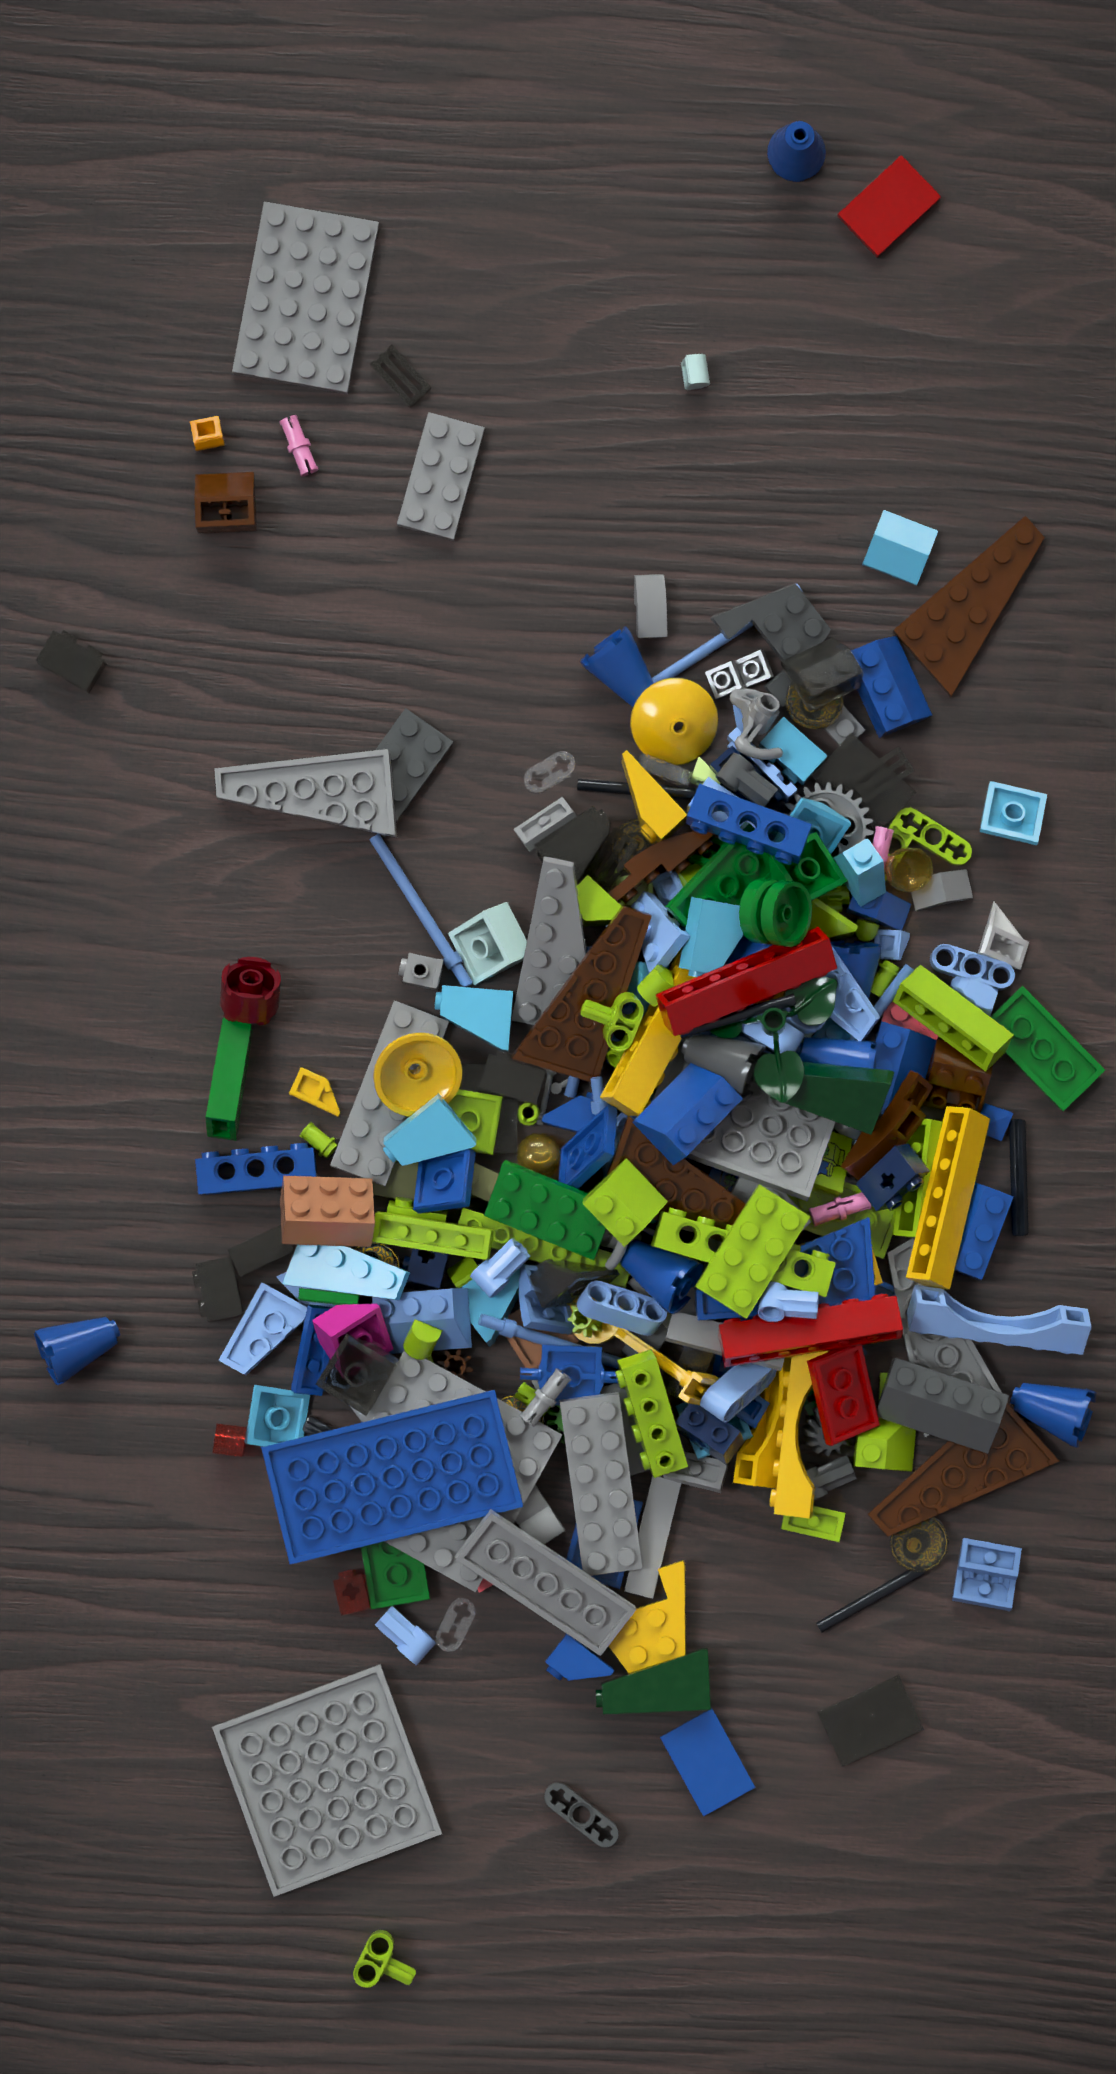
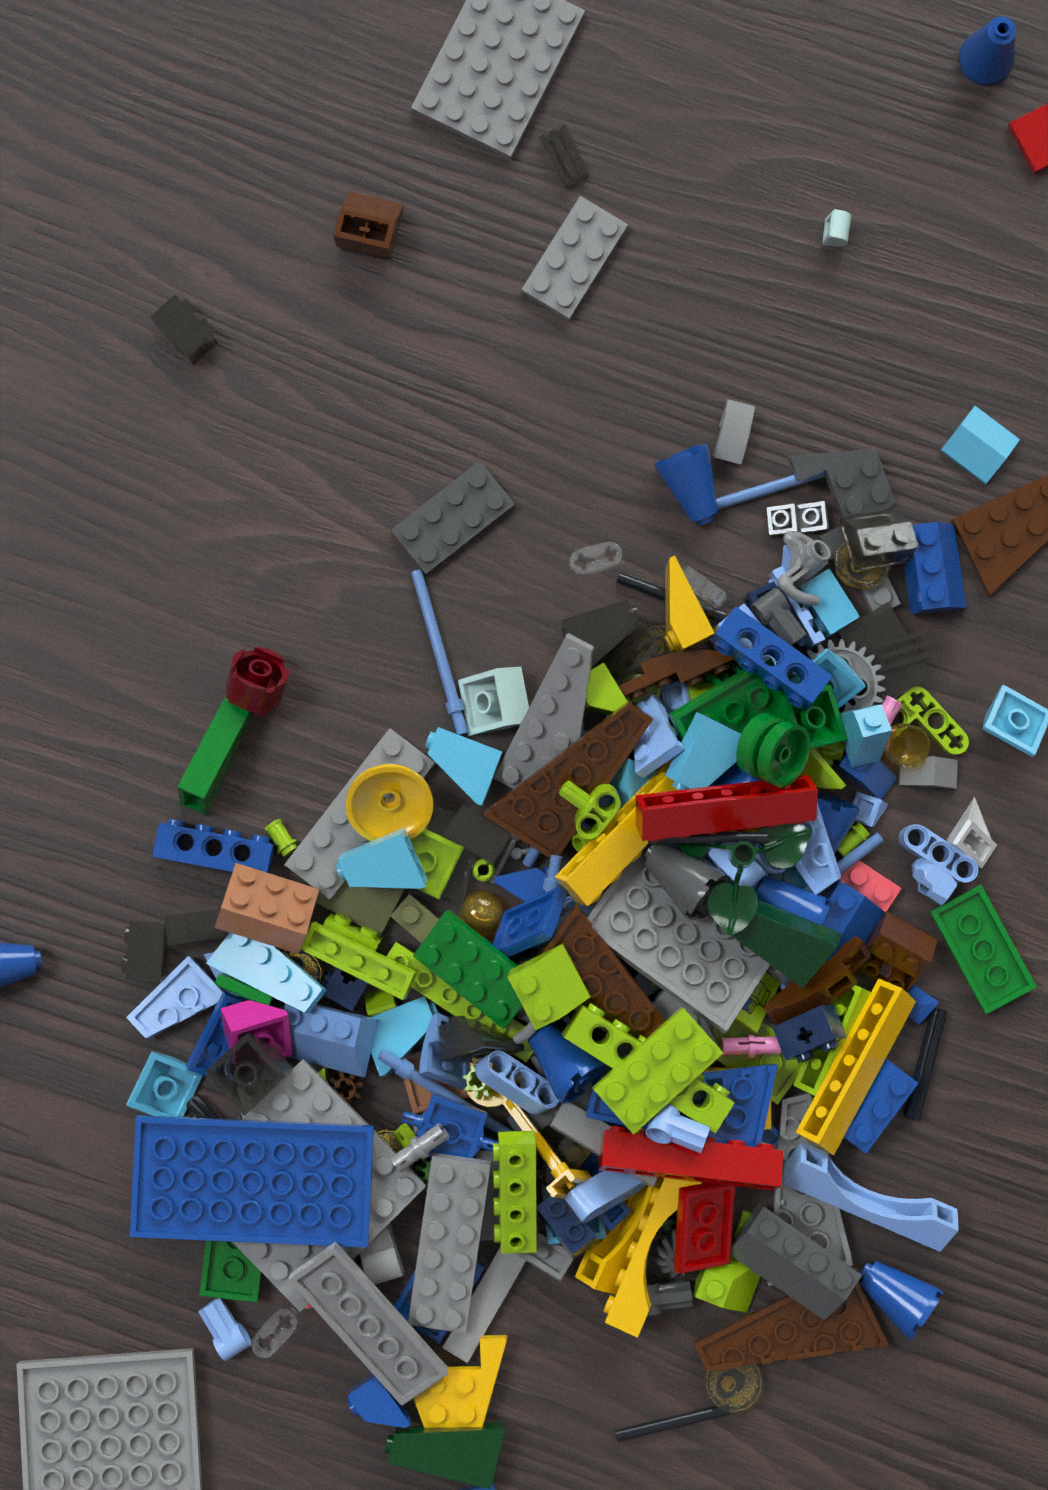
camera: 15 degrees right, 0 degrees up
(207, 433) = (371, 157): light orange brick -> none
(230, 1440) = (113, 1096): clear red brick -> none
(299, 445) = (452, 192): bright pink pin -> none
(315, 1091) = (292, 791): yellow tile -> none
(332, 789) = (388, 514): light grey wing -> none
(345, 1602) = (180, 1285): clear red brick -> none
(421, 1340) = (318, 1057): lime brick -> none
(429, 979) = (430, 716): light grey brick -> none
(444, 1182) = (385, 913): blue tile -> none
(495, 1272) = (406, 1013): light blue piece -> none
(544, 823) = (577, 603): light grey plate -> none
(655, 982) = (639, 783): lime brick -> none
(665, 705) = (722, 526): yellow dish -> none
(686, 1111) = (633, 916): blue slope -> none
(702, 772) = (737, 599): yellowish green slope -> none
(823, 1524) = (651, 1340): lime plate -> none
(866, 930) = (850, 791): lime hinge -> none
(953, 1018) = (908, 897): lime brick -> none
(986, 1574) = (789, 1432): medium blue slope -> none

